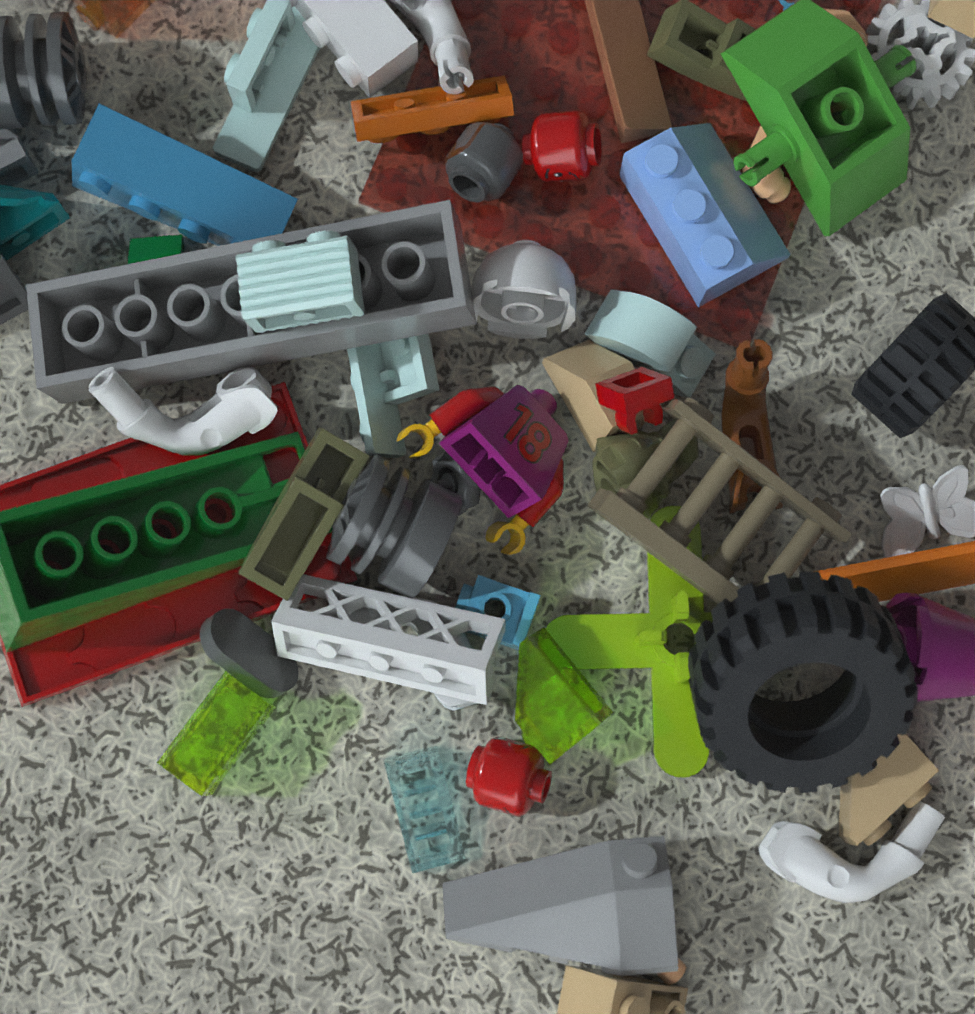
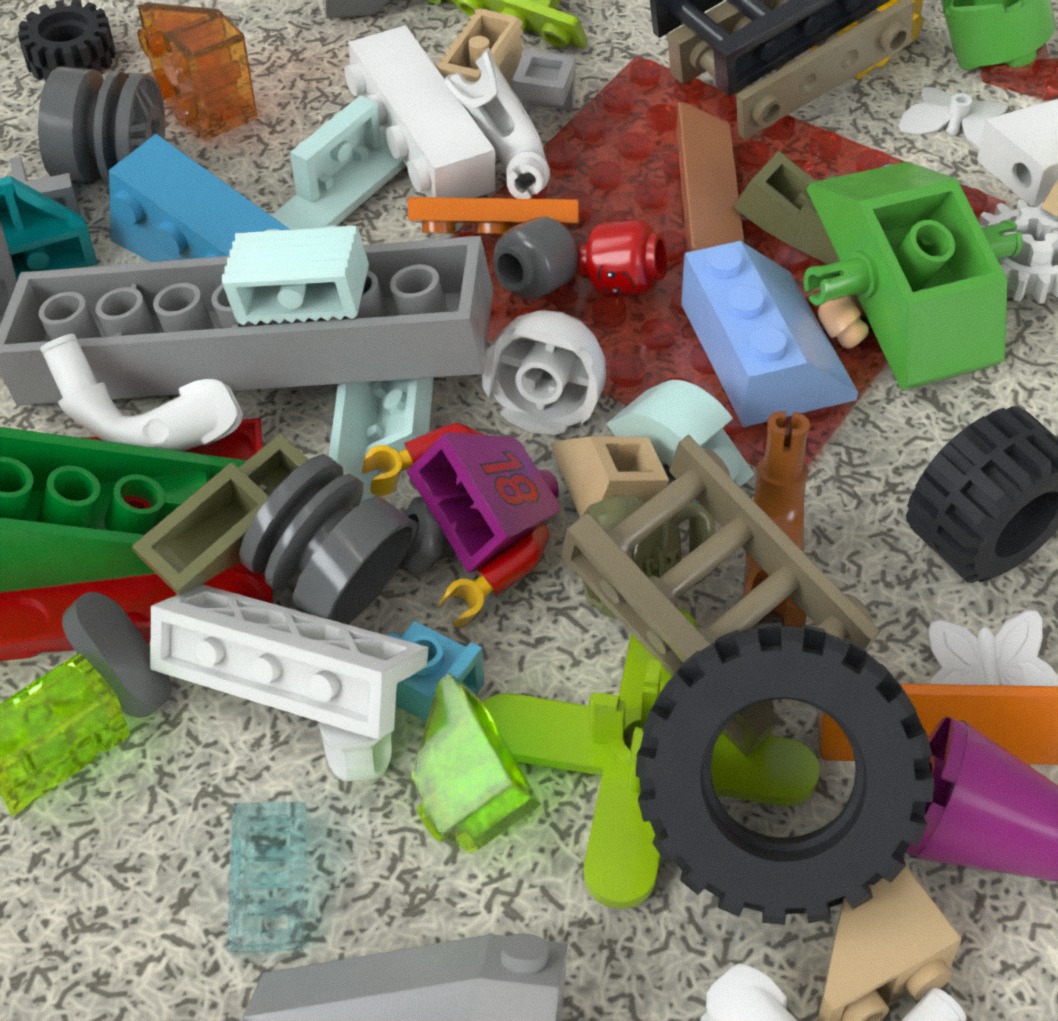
camera: 15 degrees right, 30 degrees down
(508, 776) = (383, 849): red head -> none
(635, 392) = (641, 443): red tile -> none

